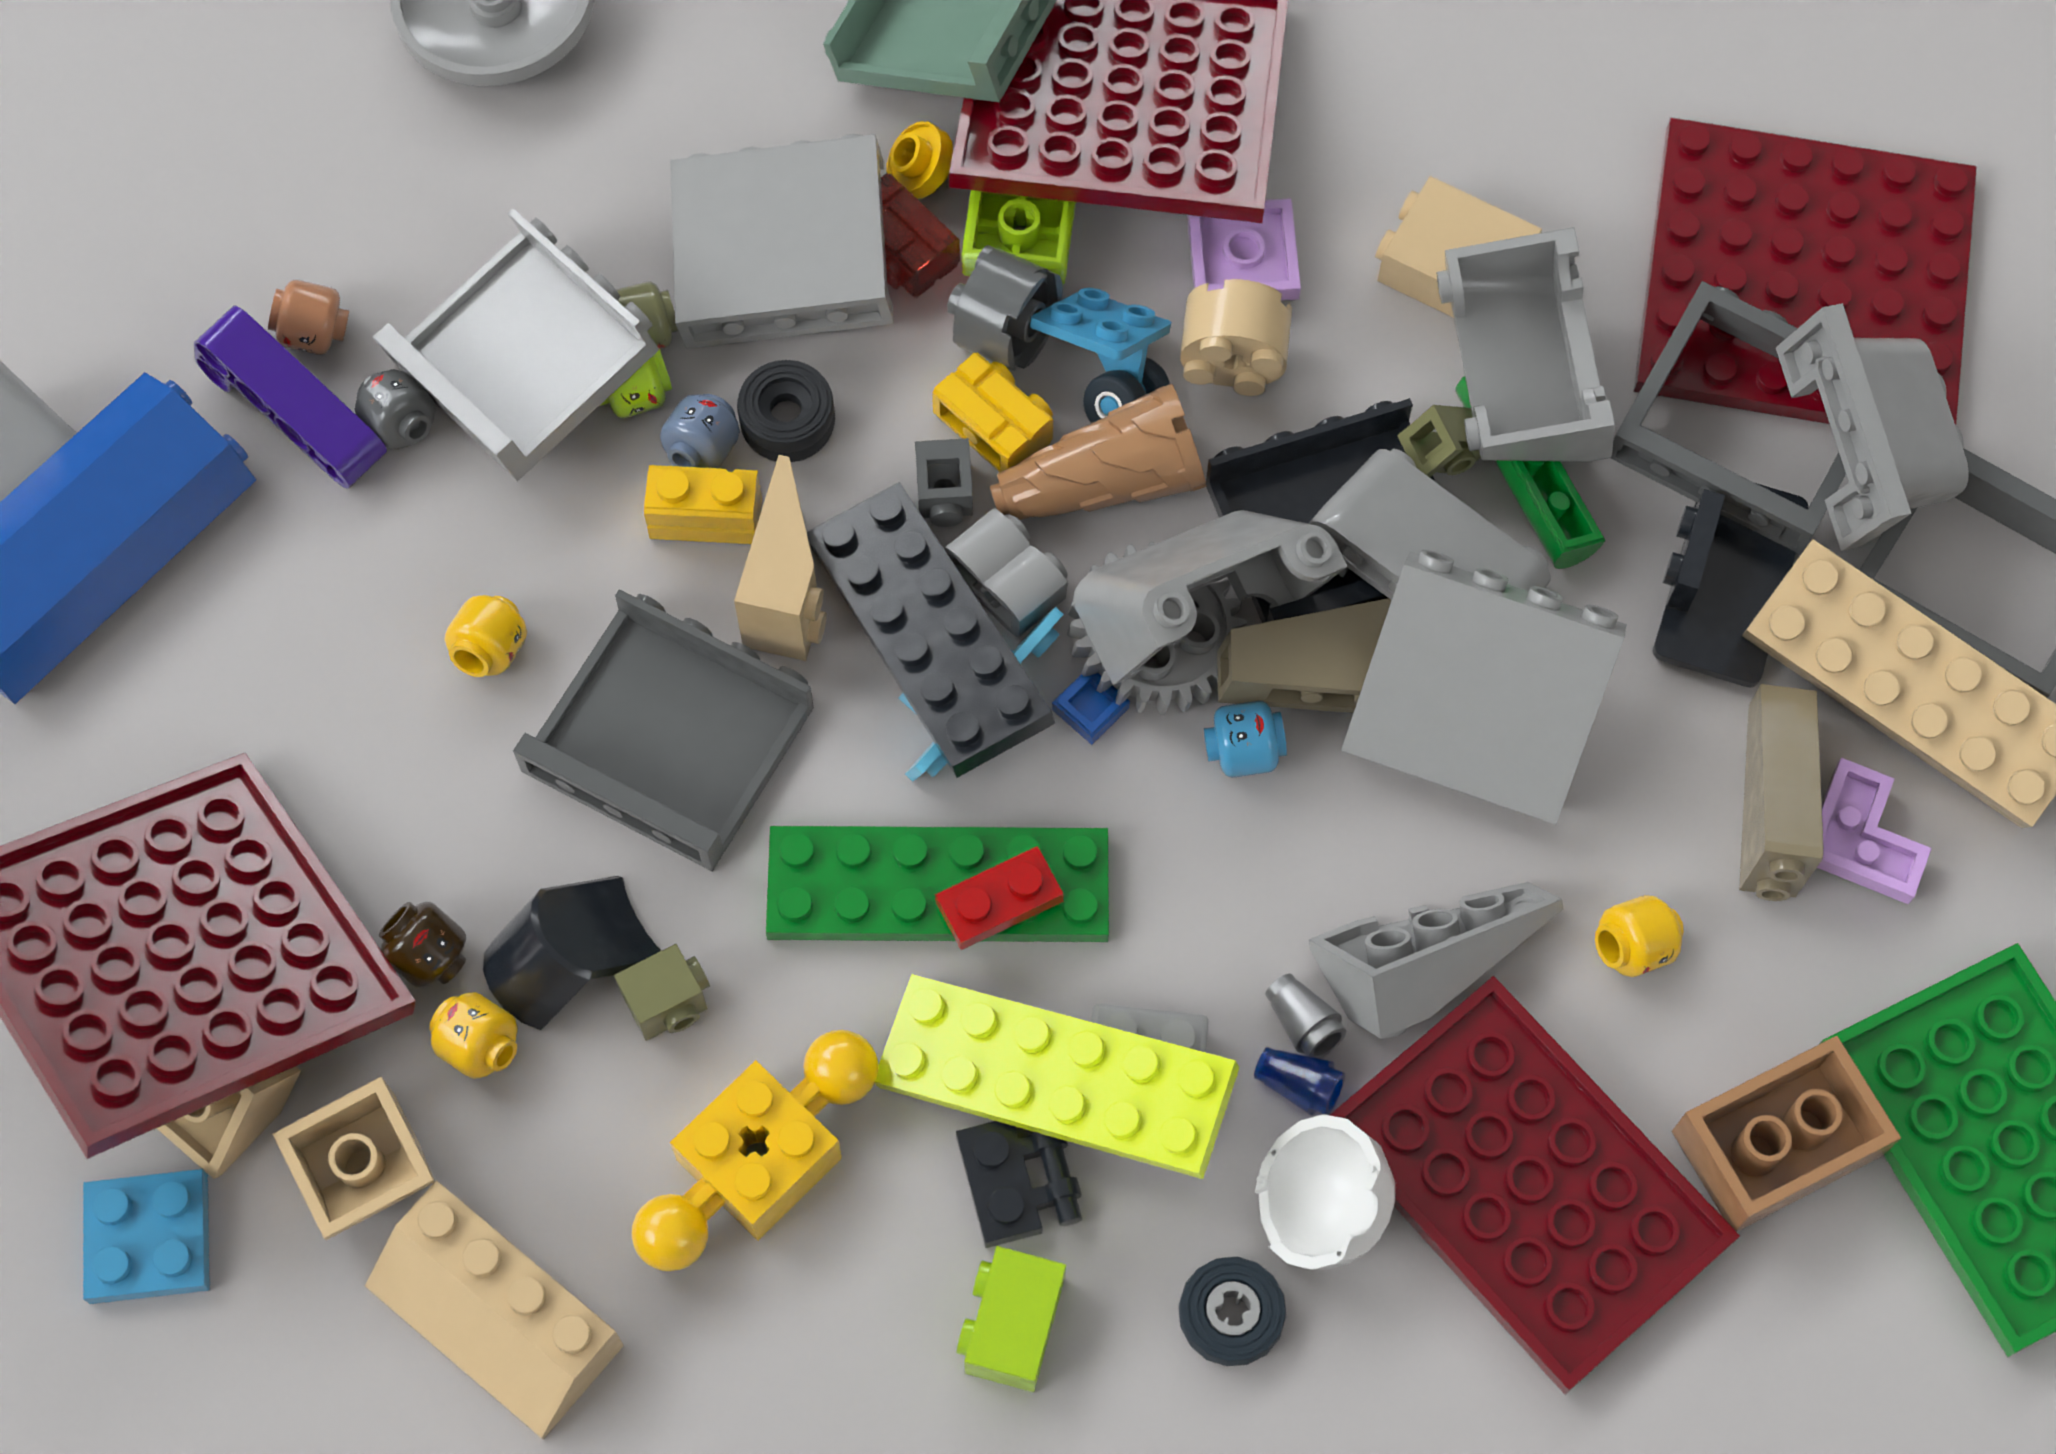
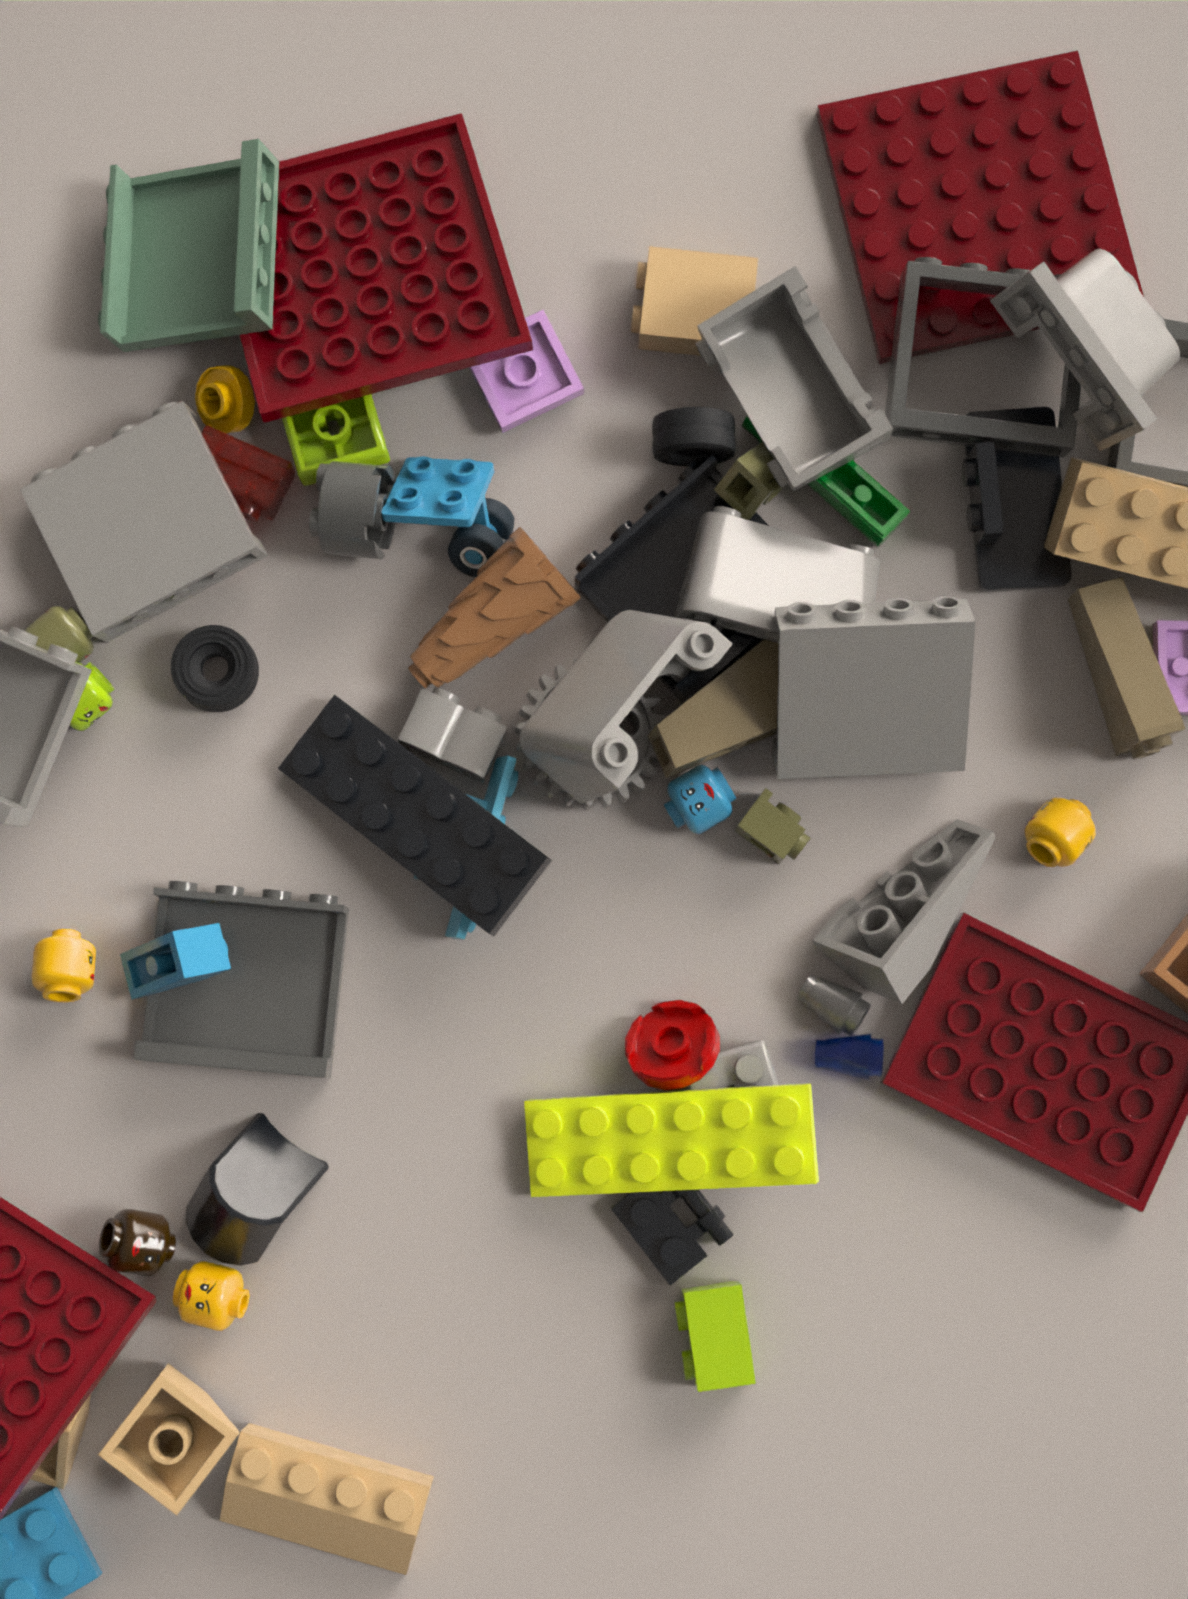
camera: 25 degrees left, 15 degrees up
(606, 670) = (175, 960): none -> dark azure slope
(664, 992) = (341, 1198): olive brick -> none
(700, 431) = (154, 719): sand blue head -> none
(702, 504) = (185, 781): yellow brick -> none
(755, 1189) = (434, 1381): yellow brick -> none
(778, 588) = (281, 829): tan slope -> none
(885, 881) = (510, 1015): green plate -> none
(944, 480) = (363, 664): dark grey brick -> none
(993, 412) = (383, 601): yellow brick -> none
(999, 898) = (566, 1014): red plate -> none
(1087, 709) = (563, 821): blue tile -> none
(1102, 979) = (672, 1045): none -> red tile
(1236, 336) = (551, 457): tan brick -> none
(1259, 1325) = (898, 1256): black bush -> none
(1313, 803) = (773, 829): none -> olive brick
(1324, 1193) = (910, 1147): white cylinder -> none
(1397, 368) = (693, 435): none -> black tyre

